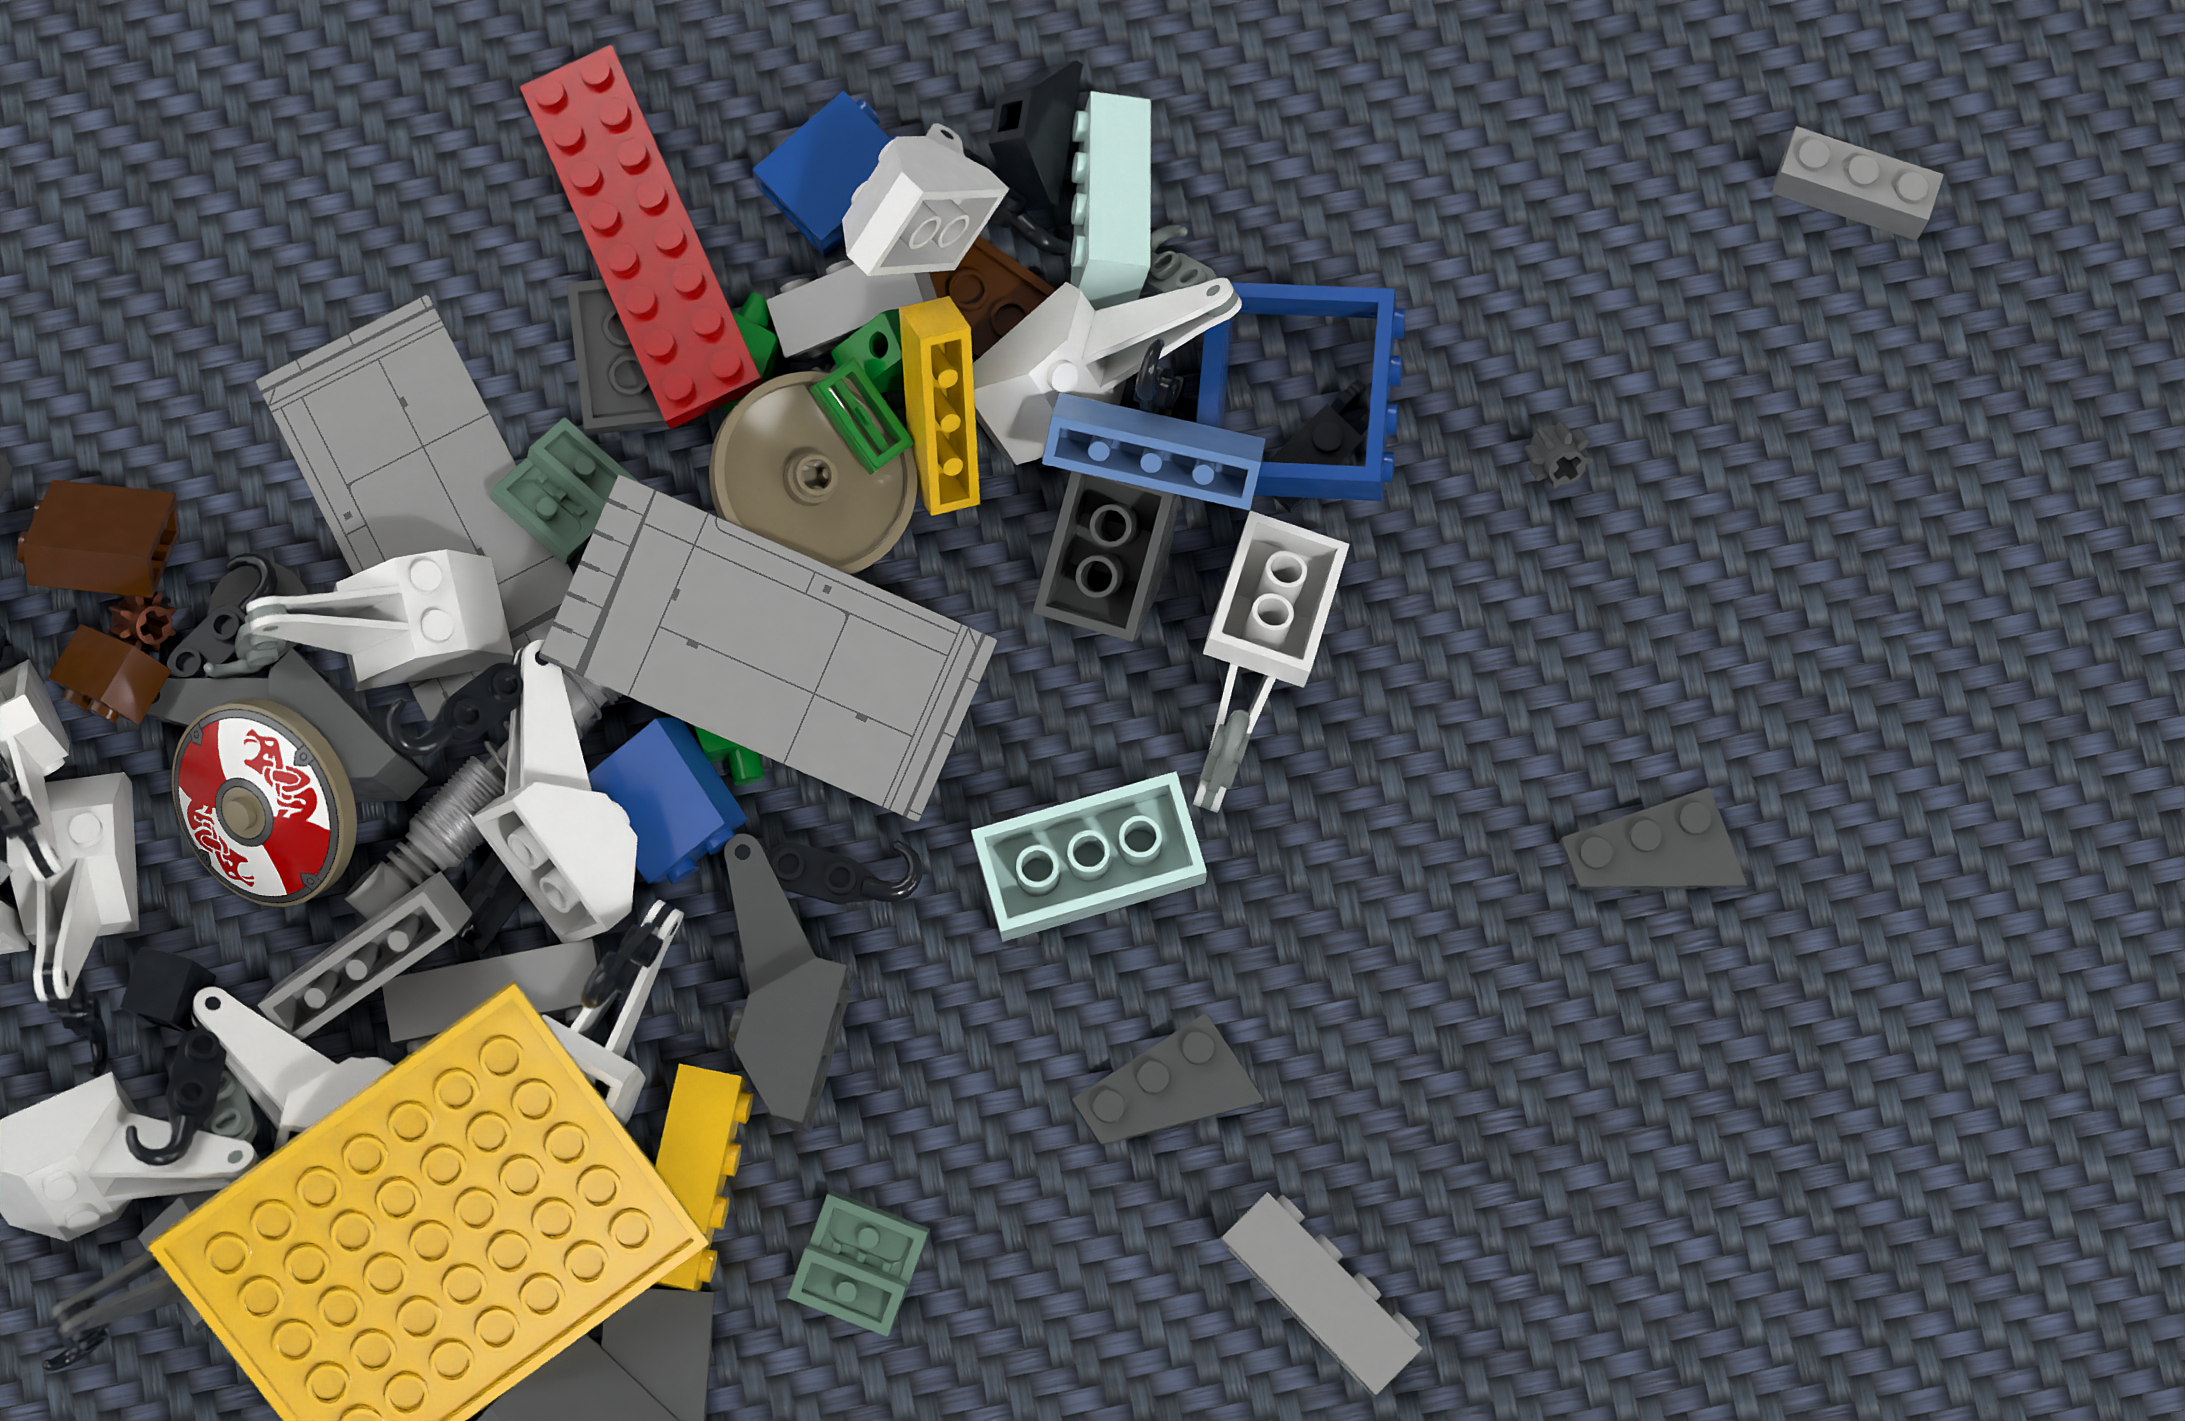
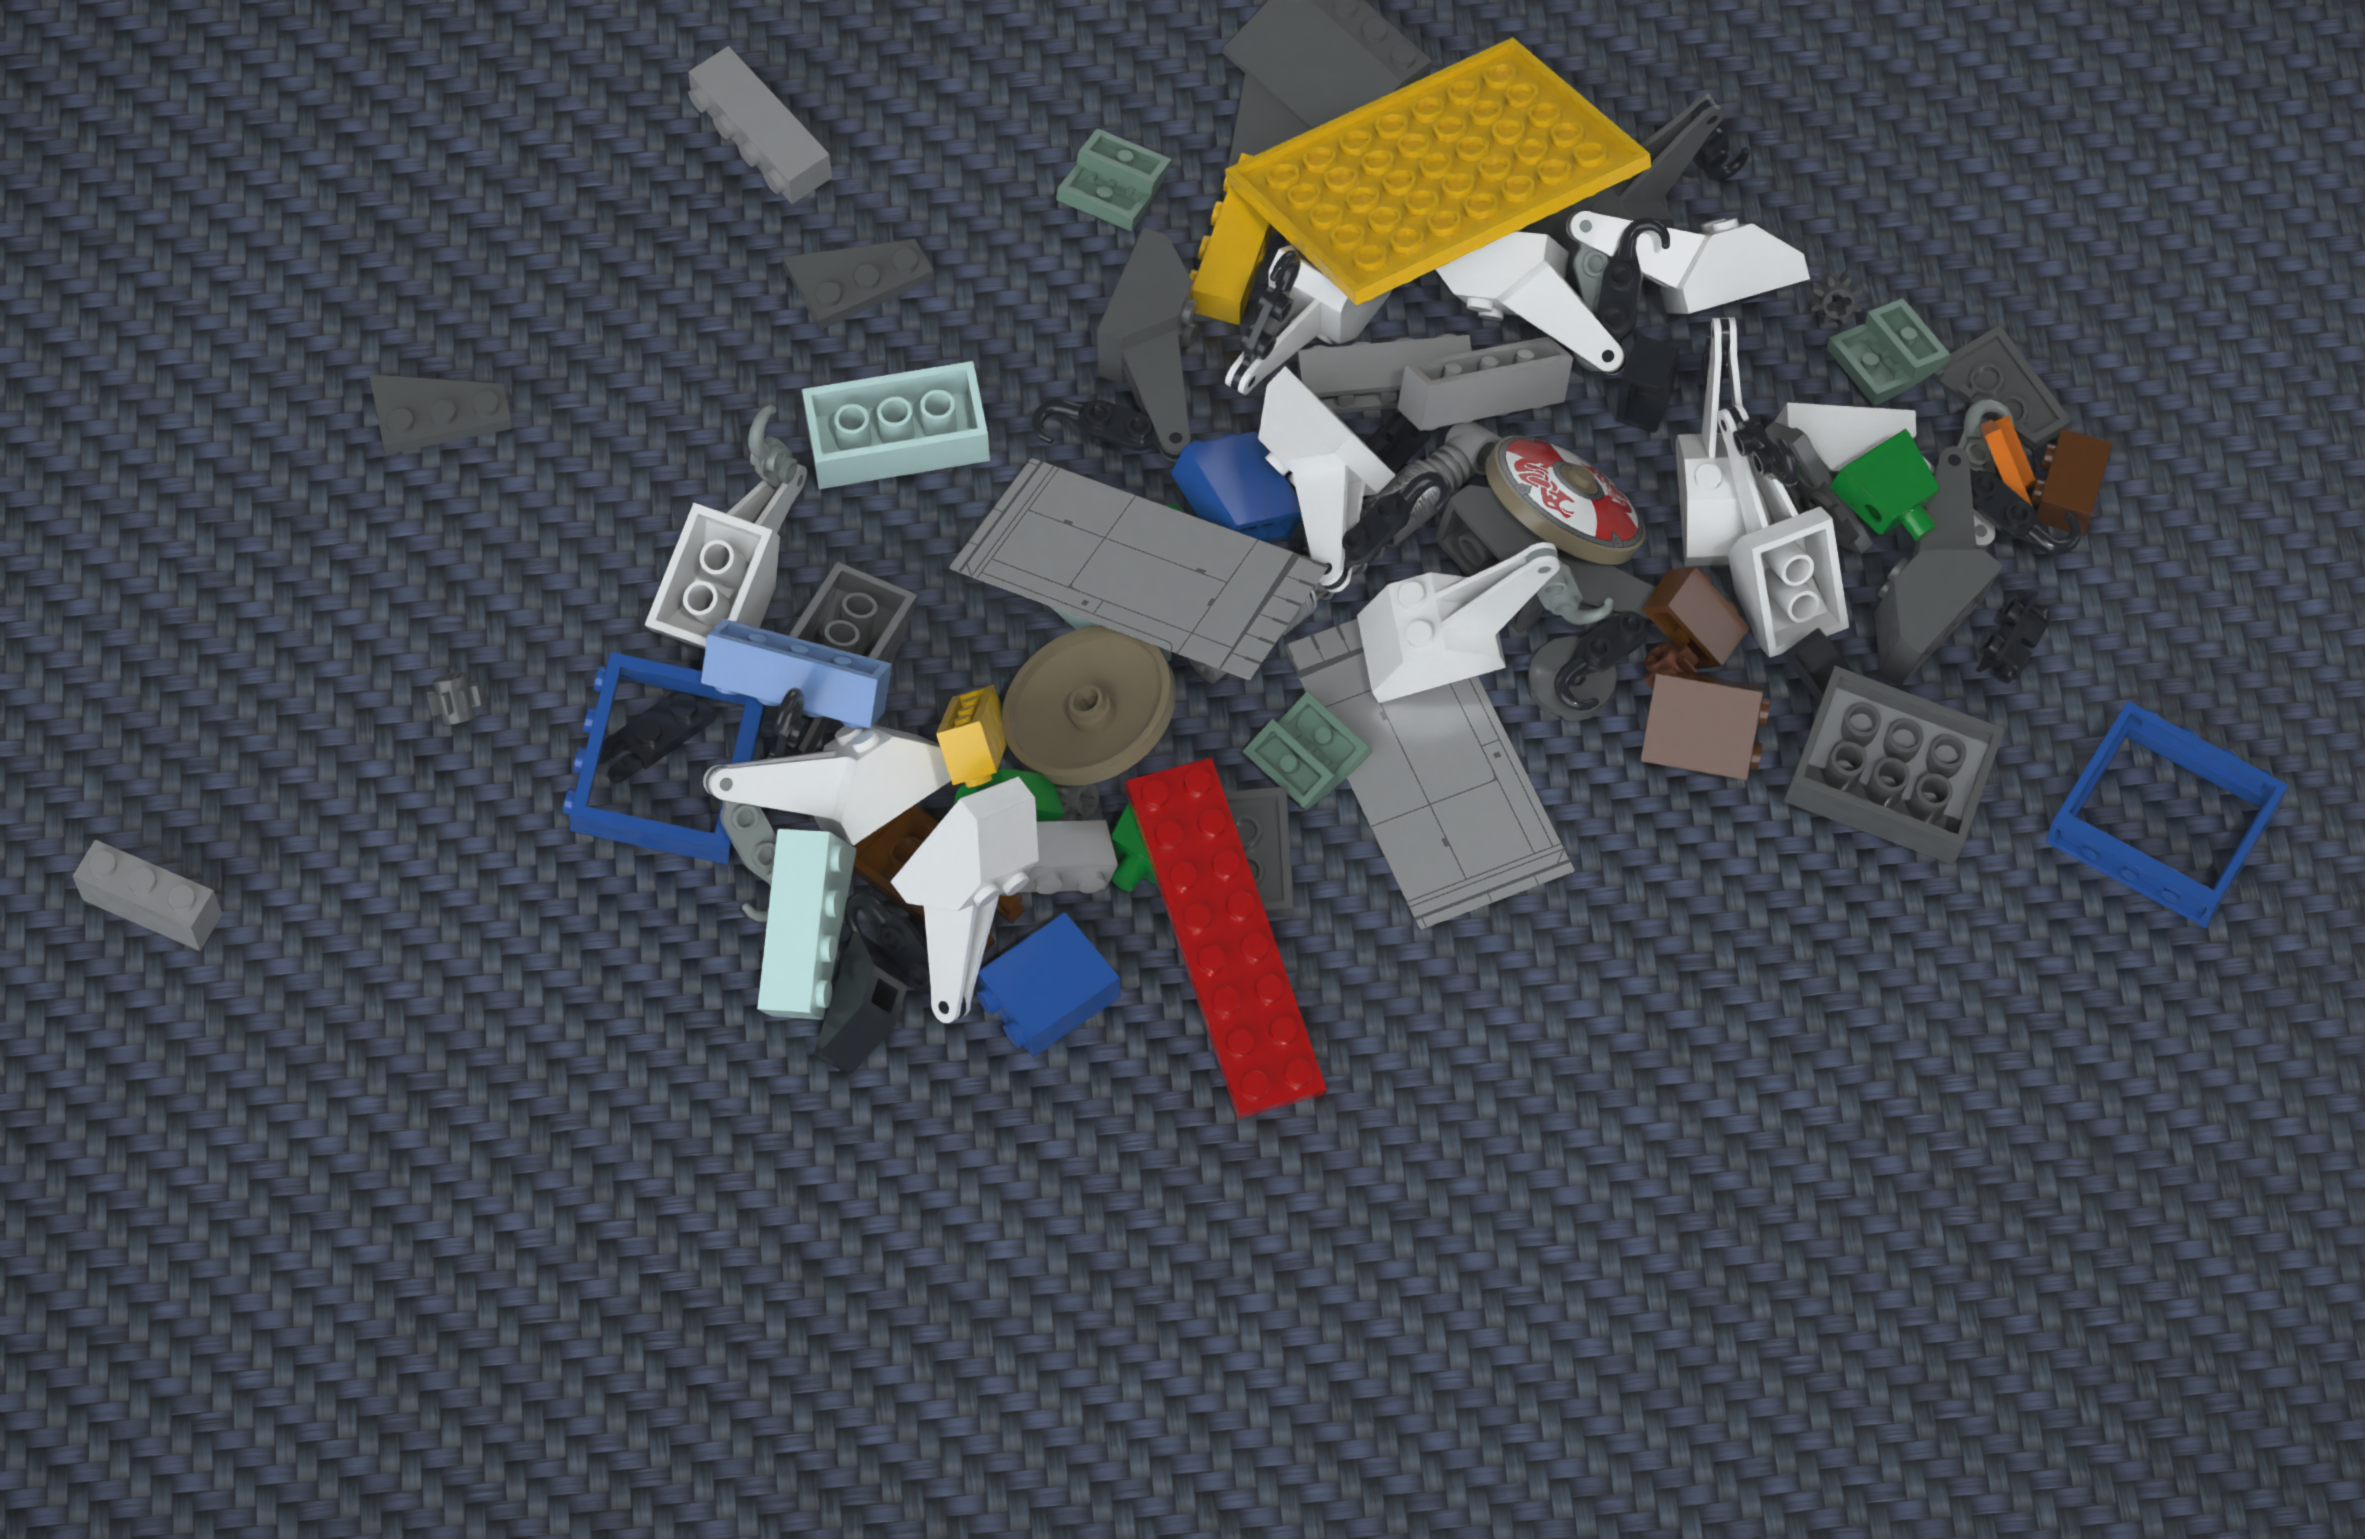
camera: 175 degrees left, 15 degrees down
(846, 426) = (1058, 764): green tile -> none

